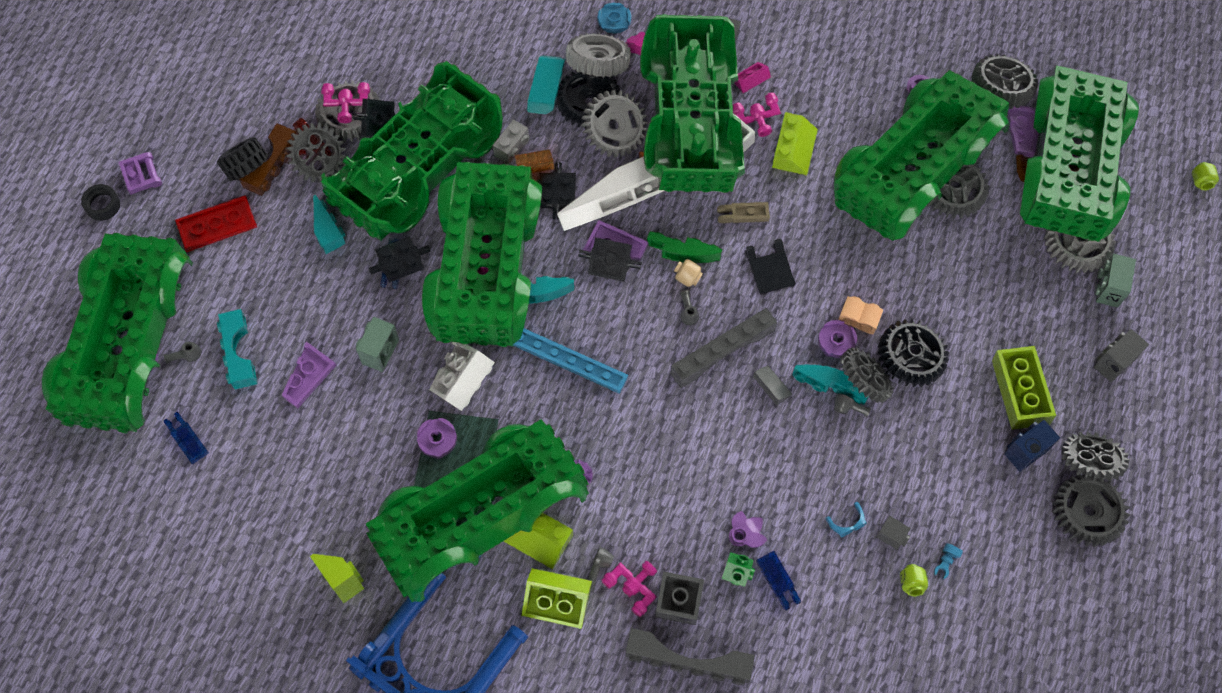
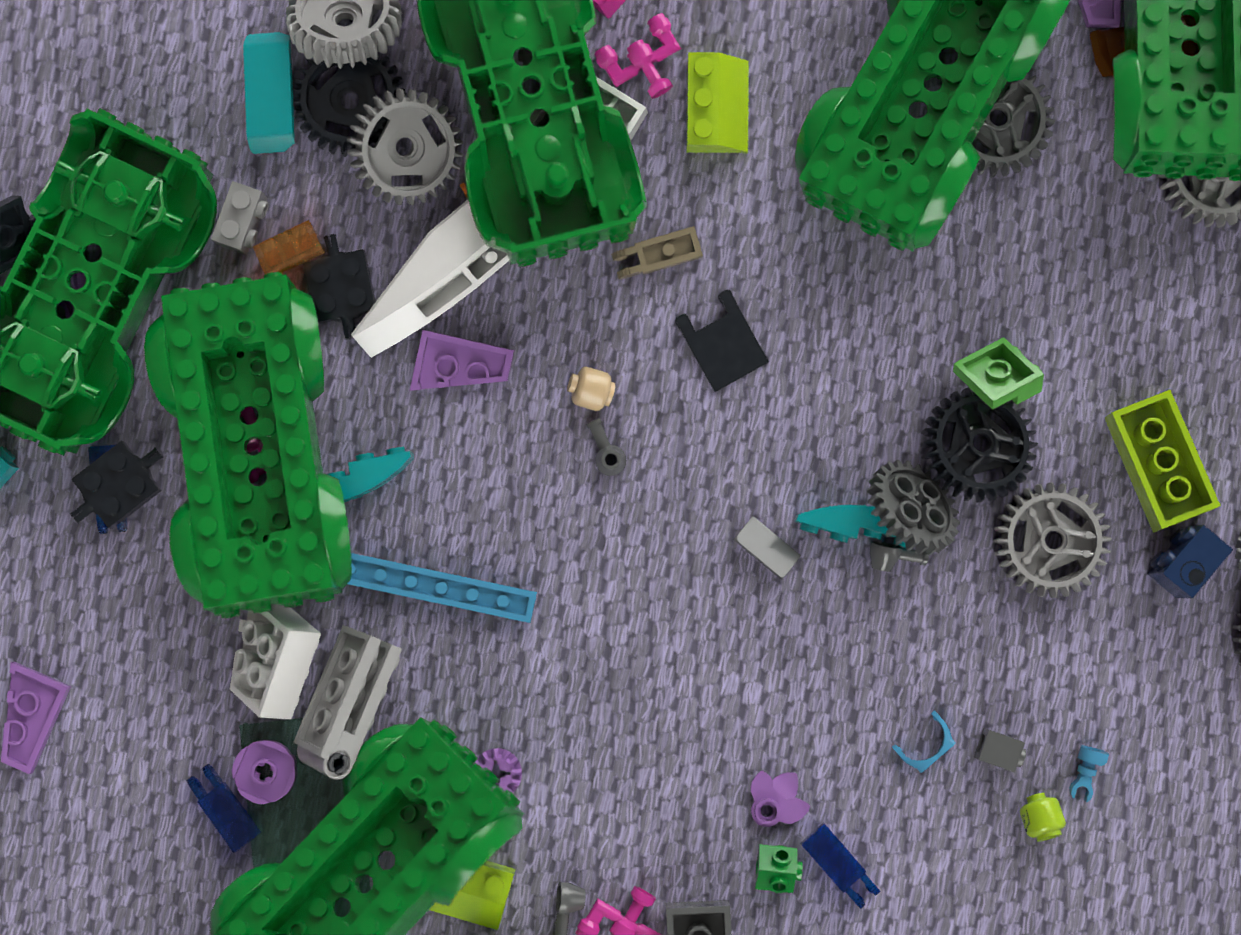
camera: 10 degrees left, 20 degrees up
(377, 344) = (125, 644): sand green brick -> none
(406, 456) = (224, 810): none -> clear blue hinge
(498, 403) = (345, 702): none -> light grey hinge
(610, 259) = (459, 397): black plate -> none
(678, 251) = (587, 348): green slope -> none
(702, 359) = (677, 508): dark grey arch -> none
(828, 333) = (847, 461): medium lavender plate -> none
(861, 314) = (884, 394): light nougat brick -> none
(933, 313) = (1000, 374): none -> bright green plate
(937, 426) = (1036, 558): none -> light grey gear

